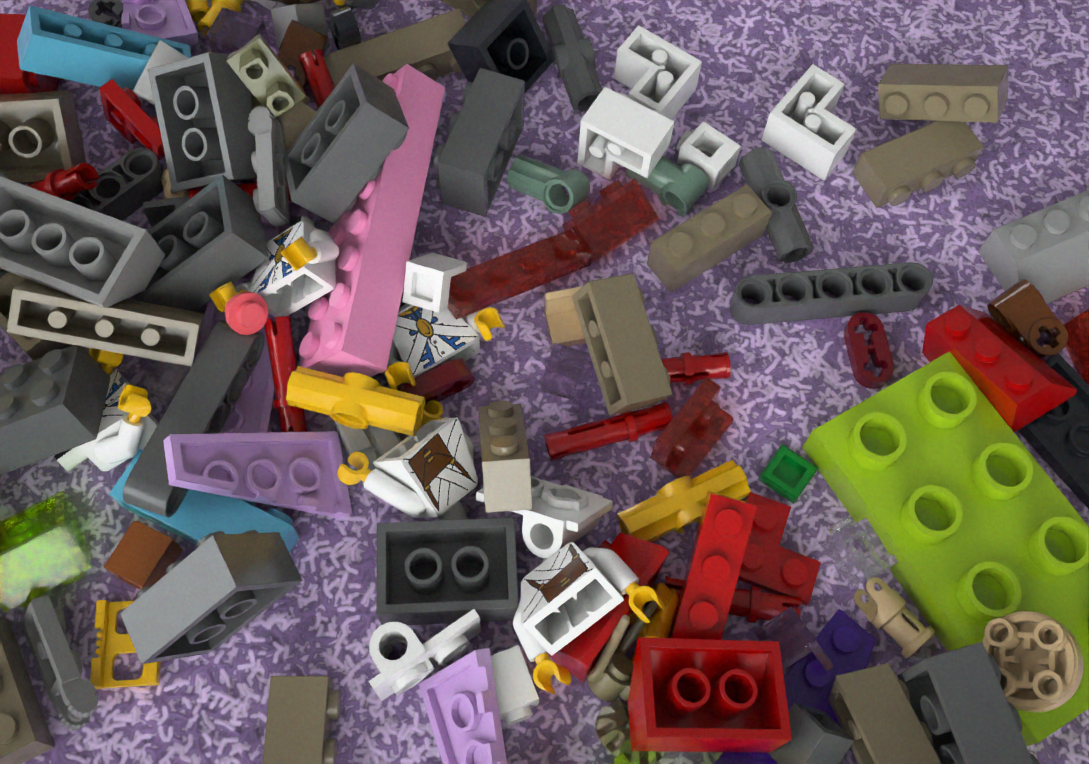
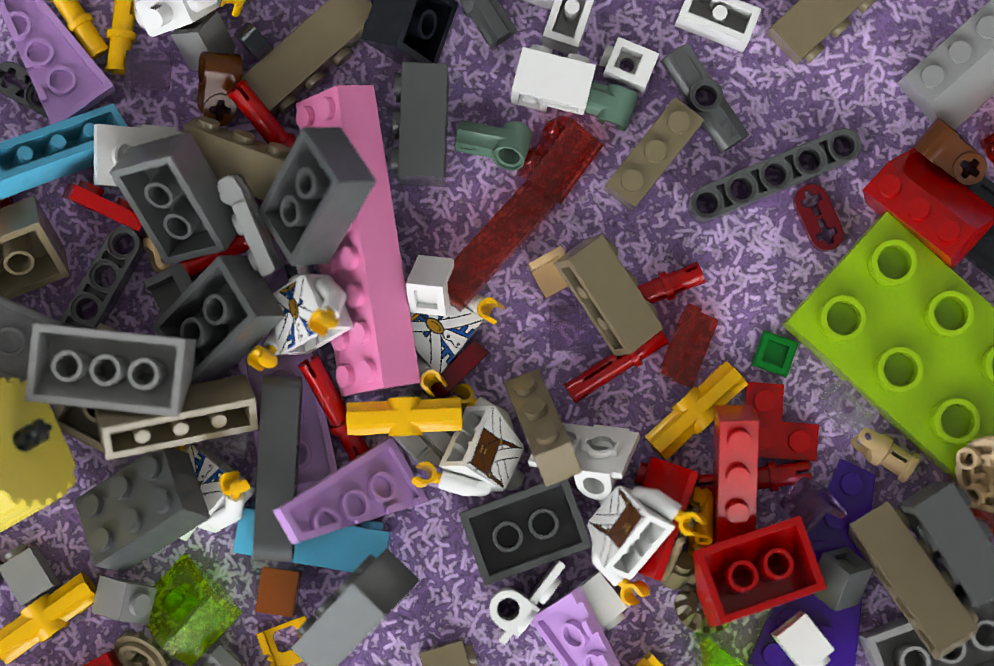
camera: 15 degrees left, 20 degrees up
(68, 183) = (67, 295): red pin -> none
(246, 313) = (285, 370): coral plate -> none
(266, 76) = (222, 149): olive hips -> none

